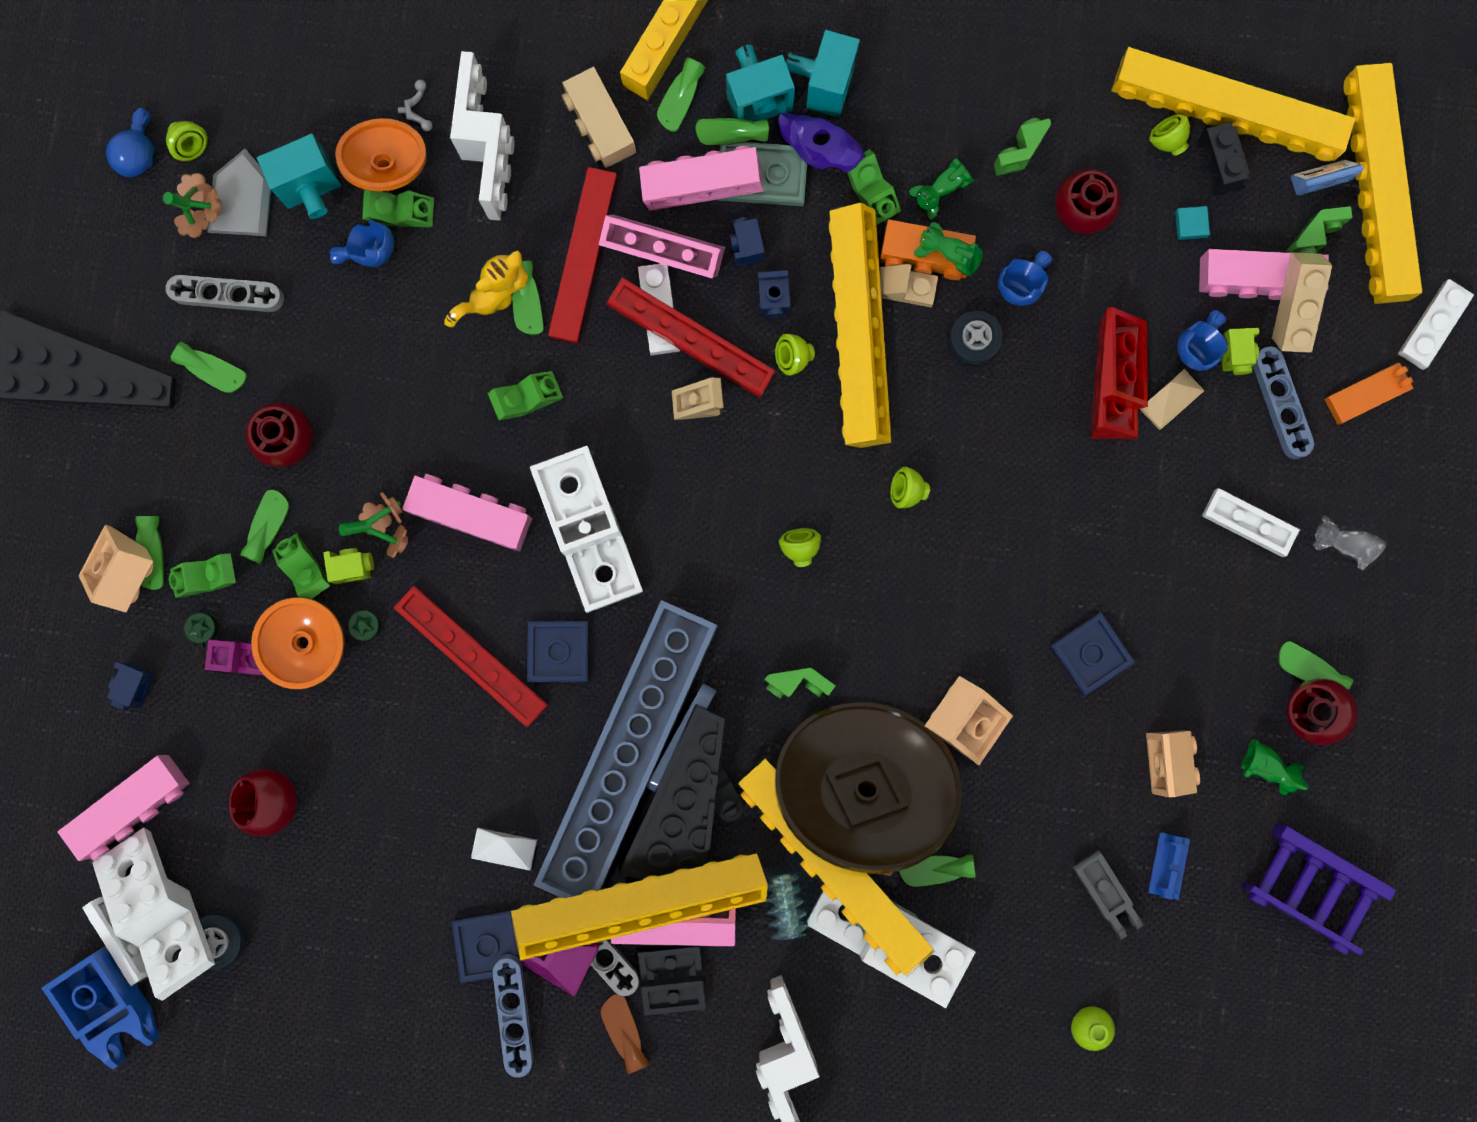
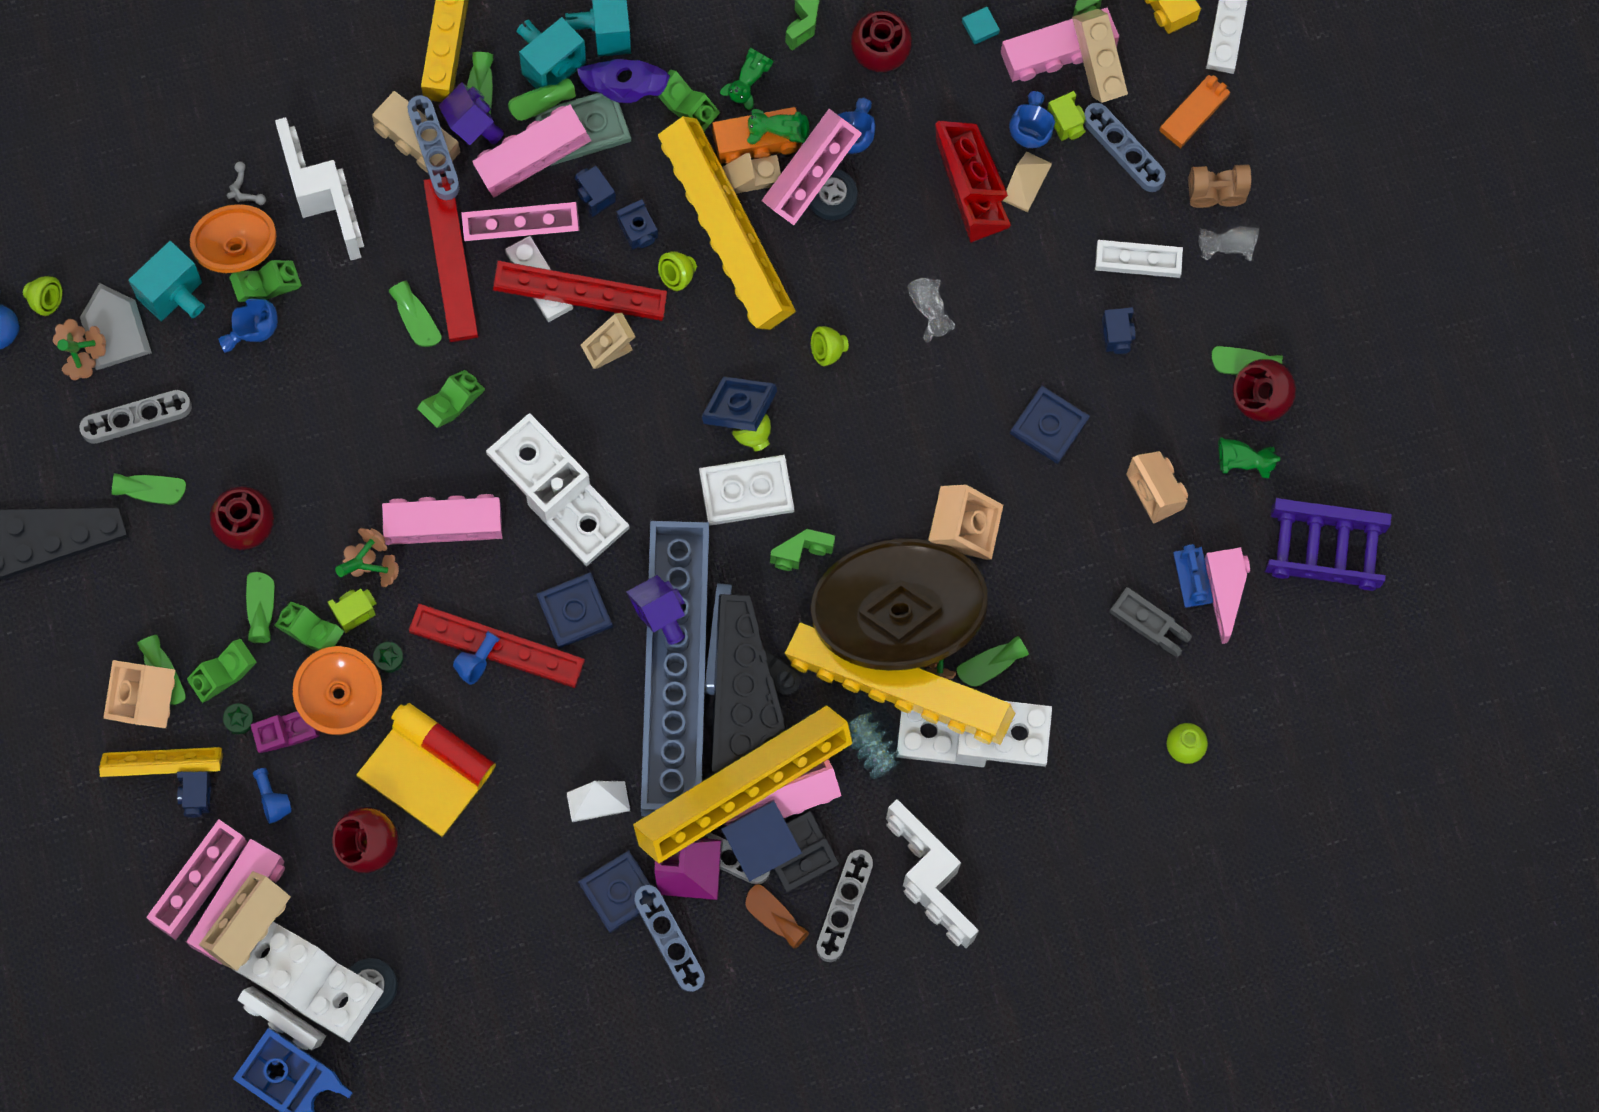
camera: 30 degrees left, 10 degrees down
(93, 773) = (197, 879): none -> bright pink brick
(110, 642) = (161, 761): none -> yellow tile
(113, 839) = (245, 921): none -> tan brick
(199, 728) = (274, 804): none -> blue bar
(353, 751) = (426, 769): none -> yellow door
(437, 668) = (472, 666): none -> blue bar
(494, 290) = (389, 302): yellow animal -> none
(606, 138) = (433, 147): none -> sand blue beam
(628, 696) = (659, 607): none -> dark purple brick
(638, 963) = (761, 840): none -> dark blue tile
(653, 120) = (469, 115): none -> dark purple brick
(692, 1049) = (840, 904): none -> light grey beam
(770, 599) = (746, 490): none -> white tile
(797, 514) = (739, 403): none -> dark blue tile
(966, 304) = (811, 167): none -> bright pink brick
(1025, 485) = (928, 301): none -> clear animal
(1199, 588) = (1118, 330): none -> dark blue brick
(1200, 891) = (1227, 577): none -> bright pink slope
(1366, 486) = (1226, 188): none -> medium nougat piece

